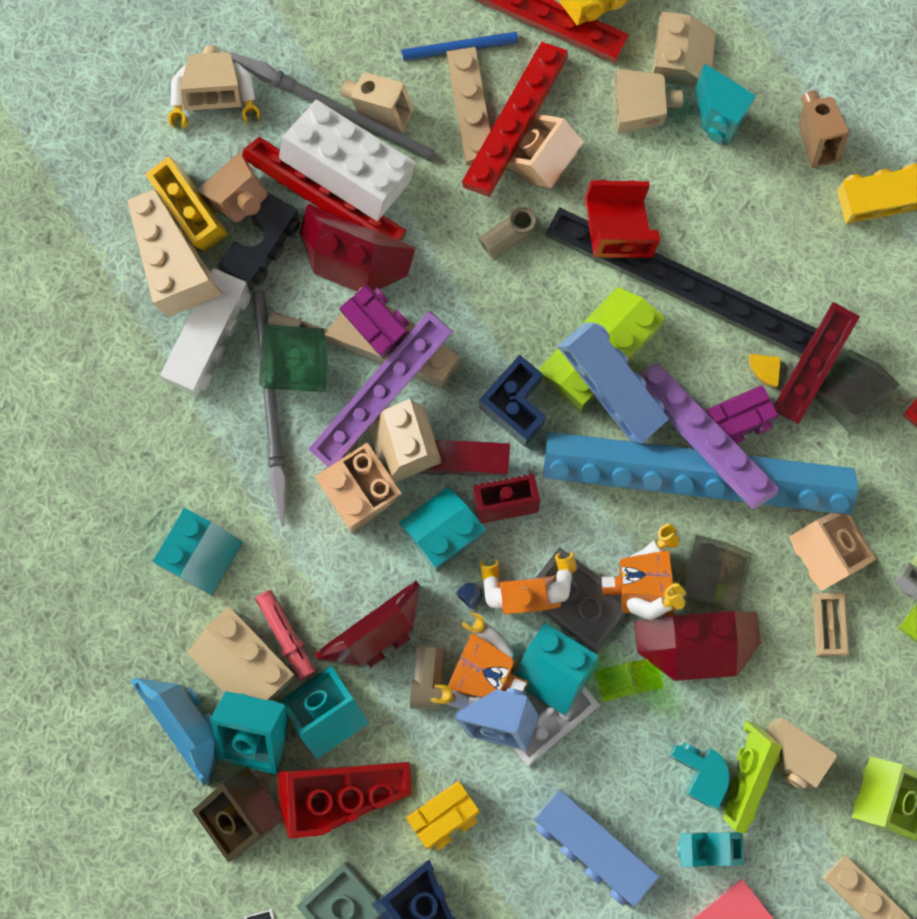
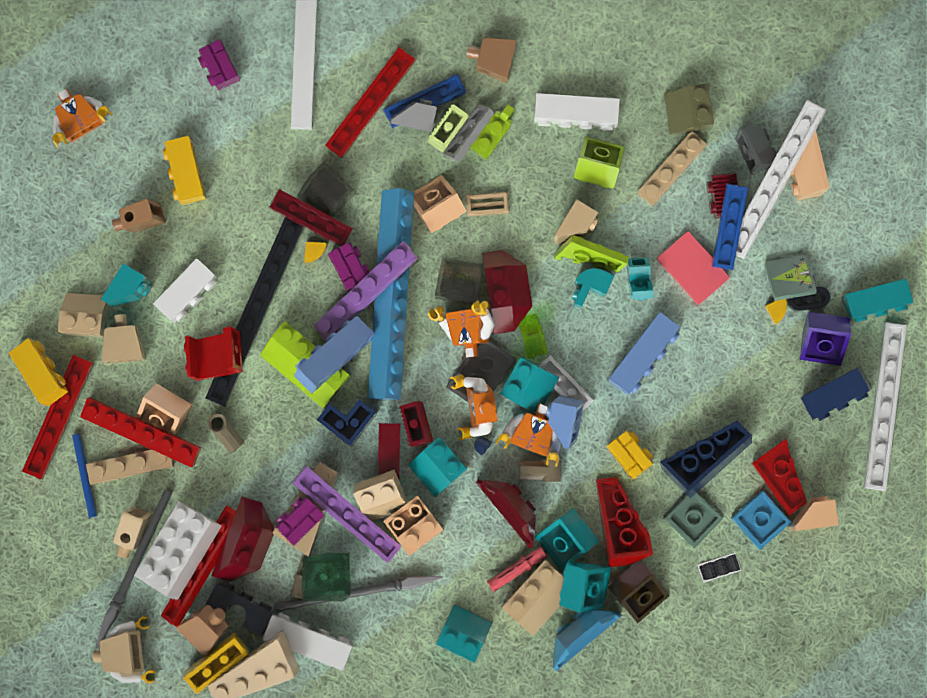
camera: 90 degrees left, 5 degrees up
(712, 188) = (186, 291): none -> white brick

